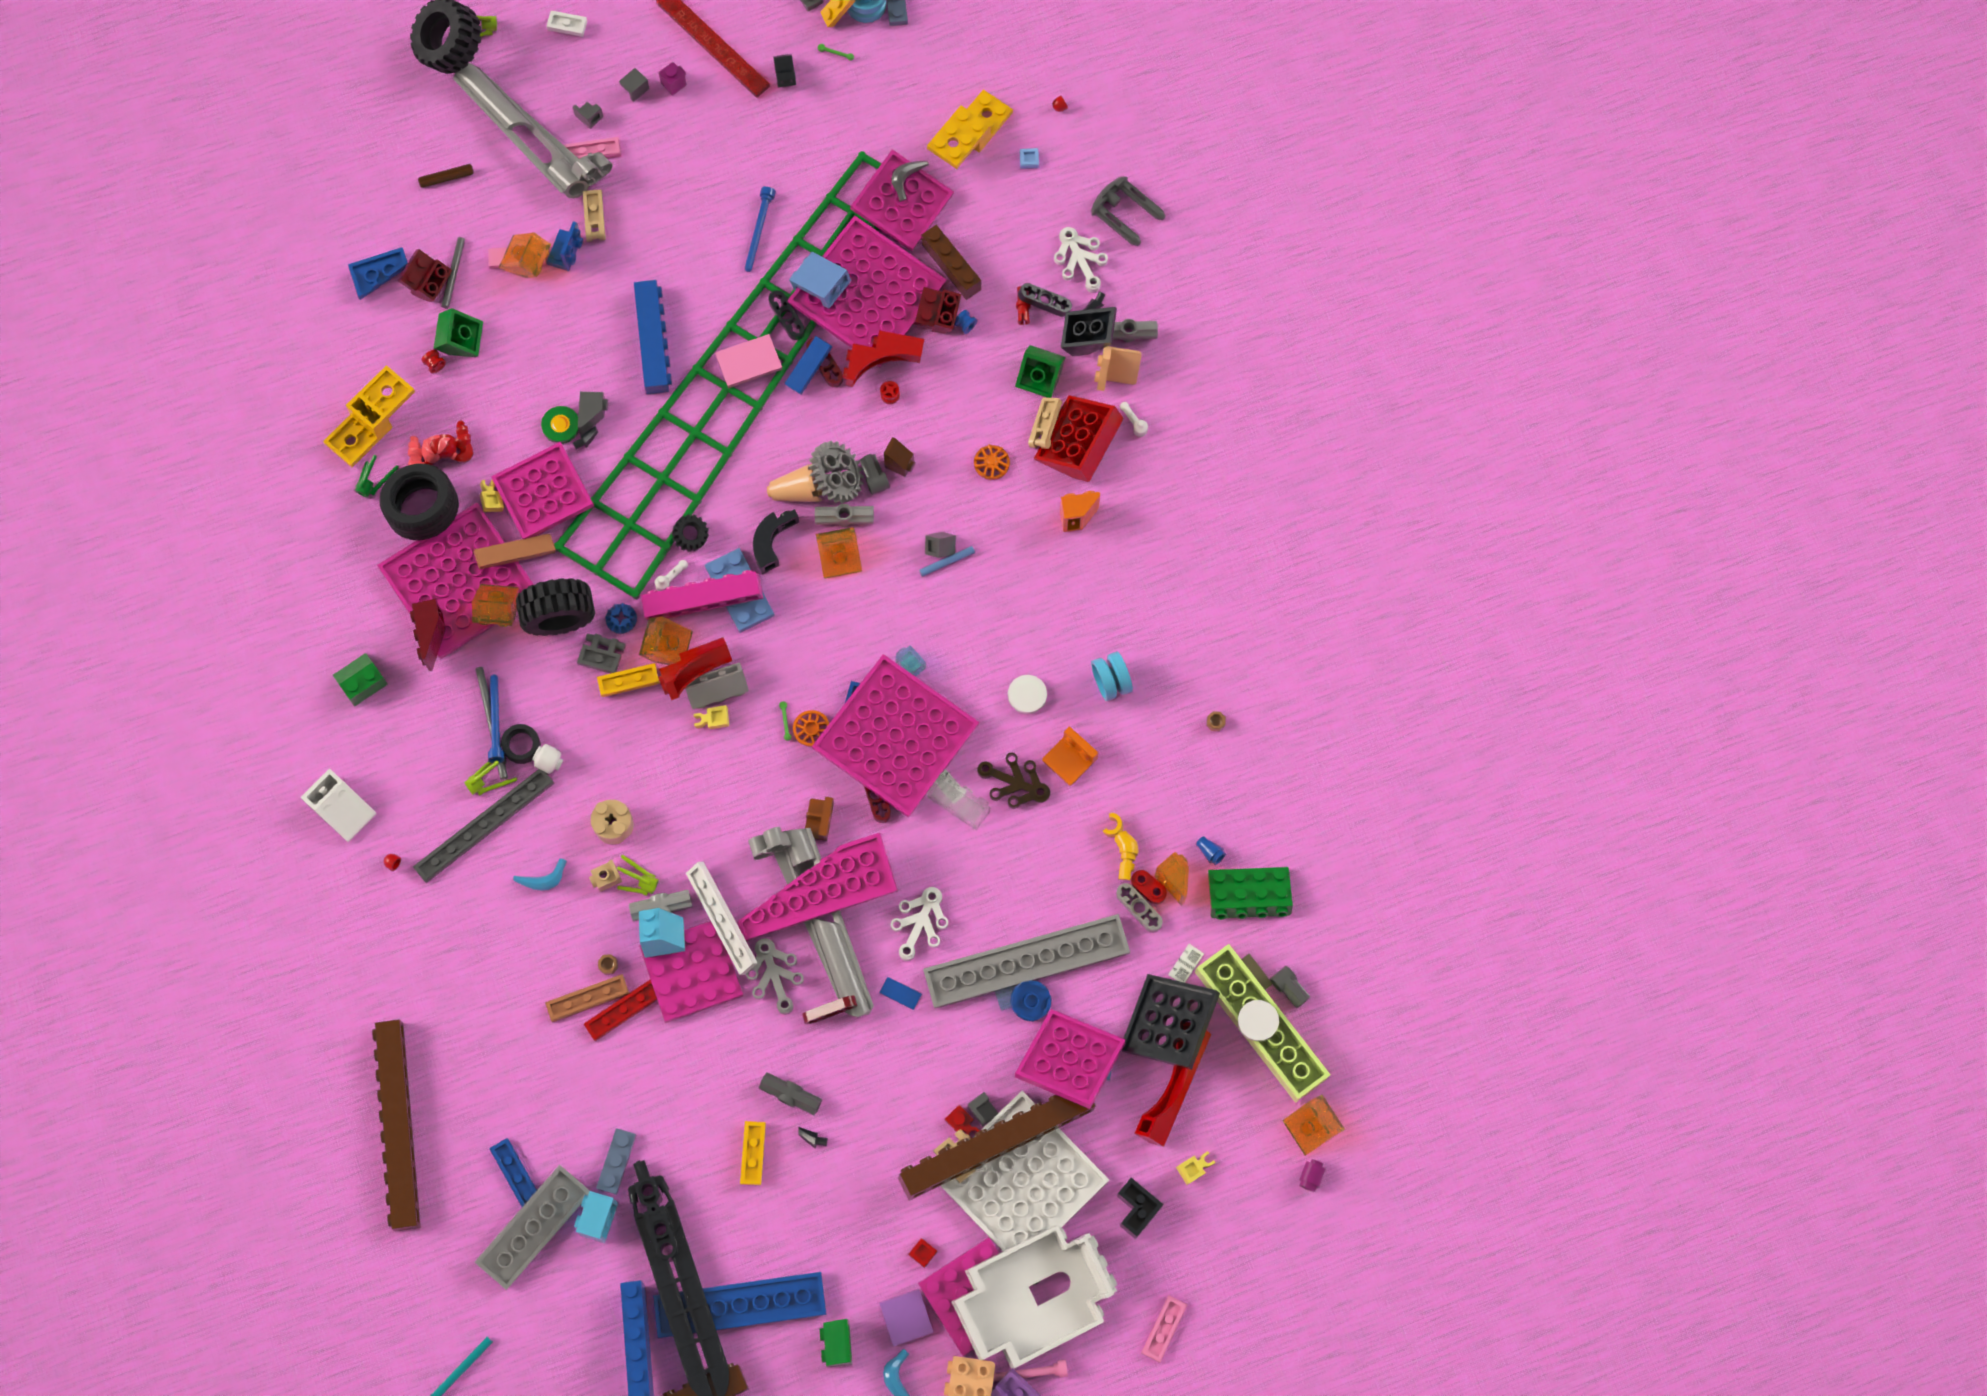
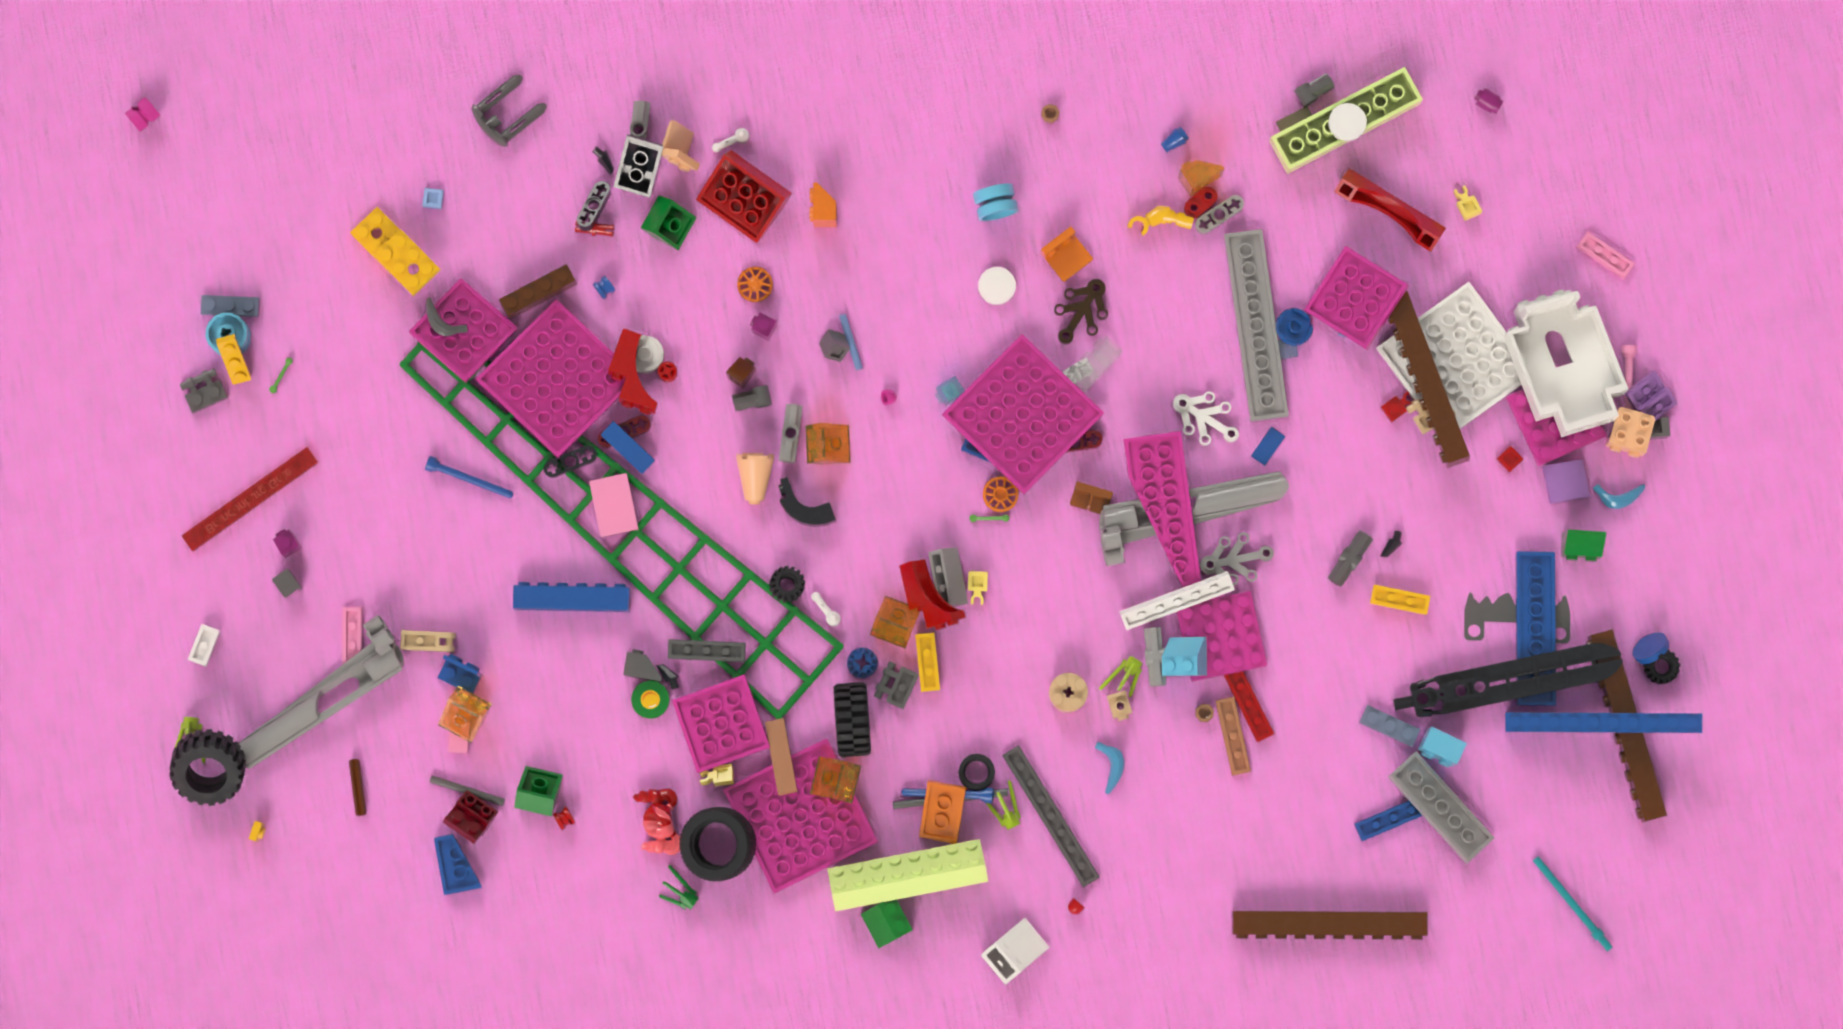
camera: 80 degrees left, 10 degrees up
(369, 416) = (617, 886): yellow bracket -> none
(393, 93) = (257, 832): none -> yellow plate
(405, 687) = (907, 875): none -> yellowish green brick
(429, 630) = (852, 844): dark red slope -> none
(474, 713) = (942, 812): none -> orange plate
(547, 758) = (997, 747): white head -> none
(588, 114) = (311, 634): dark grey panel -> none
(614, 467) = (706, 650): none -> dark grey tile
(702, 596) = (856, 580): dark pink brick -> none
(744, 614) = (850, 545): medium blue plate -> none
(755, 1269) = (1505, 611): none -> dark grey piece
(784, 70) = (296, 428): black brick -> none
(821, 279) = (541, 421): medium blue panel -> none
(829, 1009) = (1279, 511): beam -> none
(837, 485) = (762, 431): light grey gear -> none
(895, 604) = (888, 397): none -> dark pink hinge
(905, 373) = (649, 355): none -> white tile
(937, 310) = (589, 311): dark red brick -> none
(949, 474) = (763, 326): none -> magenta brick
(982, 1109) = (1388, 386): dark grey panel -> none
(1045, 423) = (723, 226): tan plate -> none
(1059, 104) = (378, 159): red hinge -> none
(1079, 255) = (549, 166): white plant -> none
(1143, 1207) = (1499, 255): black brick -> none
(1186, 963) = (1277, 181): white sticker -> none
(1192, 1037) = (1347, 199): black piece -> none
(1250, 892) = (1220, 110): green bracket -> none
(1313, 1124) = (1443, 91): clear yellow slope -> none

